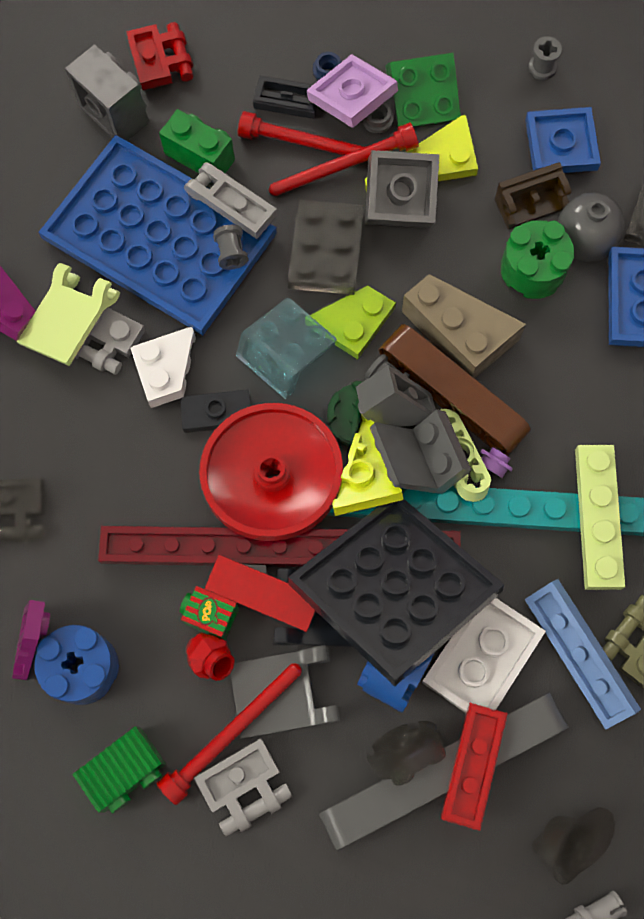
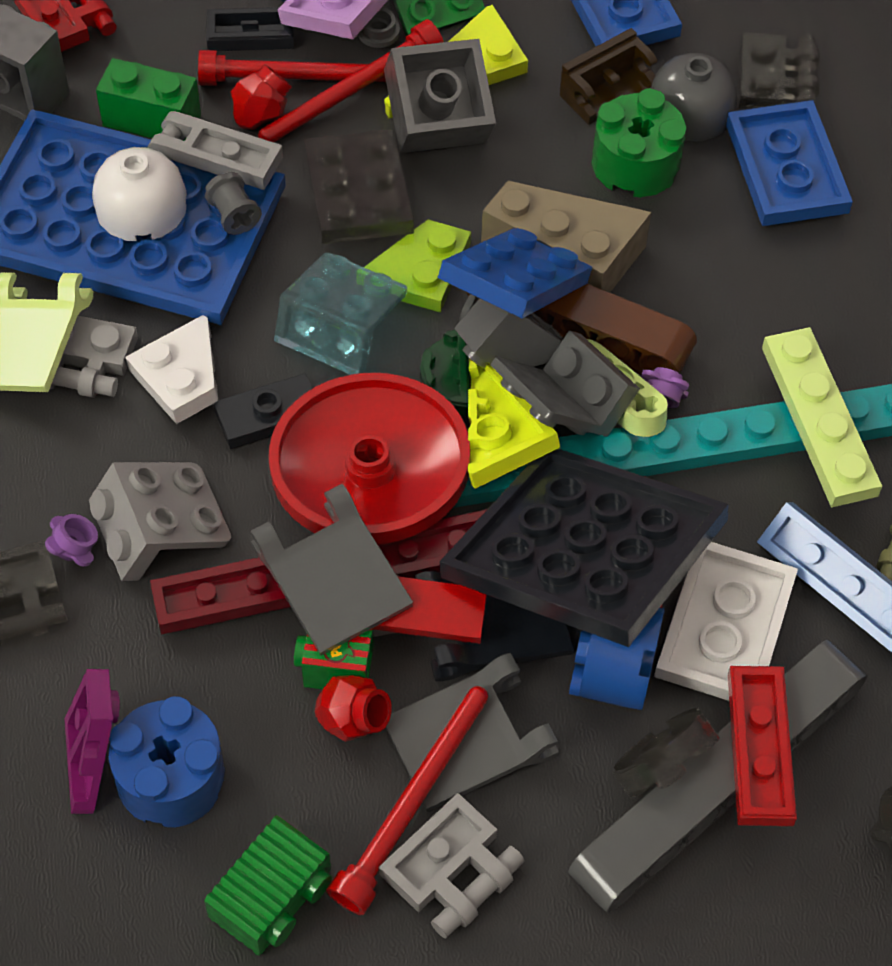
camera: 20 degrees left, 15 degrees down
(66, 473) = (72, 538): none -> medium lavender plate
(121, 474) = (155, 509): none -> light grey bracket
(168, 224) = (139, 194): none -> white cylinder
(218, 564) = (335, 576): none -> dark grey flag
(276, 159) = (259, 98): none -> red rock
(408, 358) = (516, 272): none -> blue plate

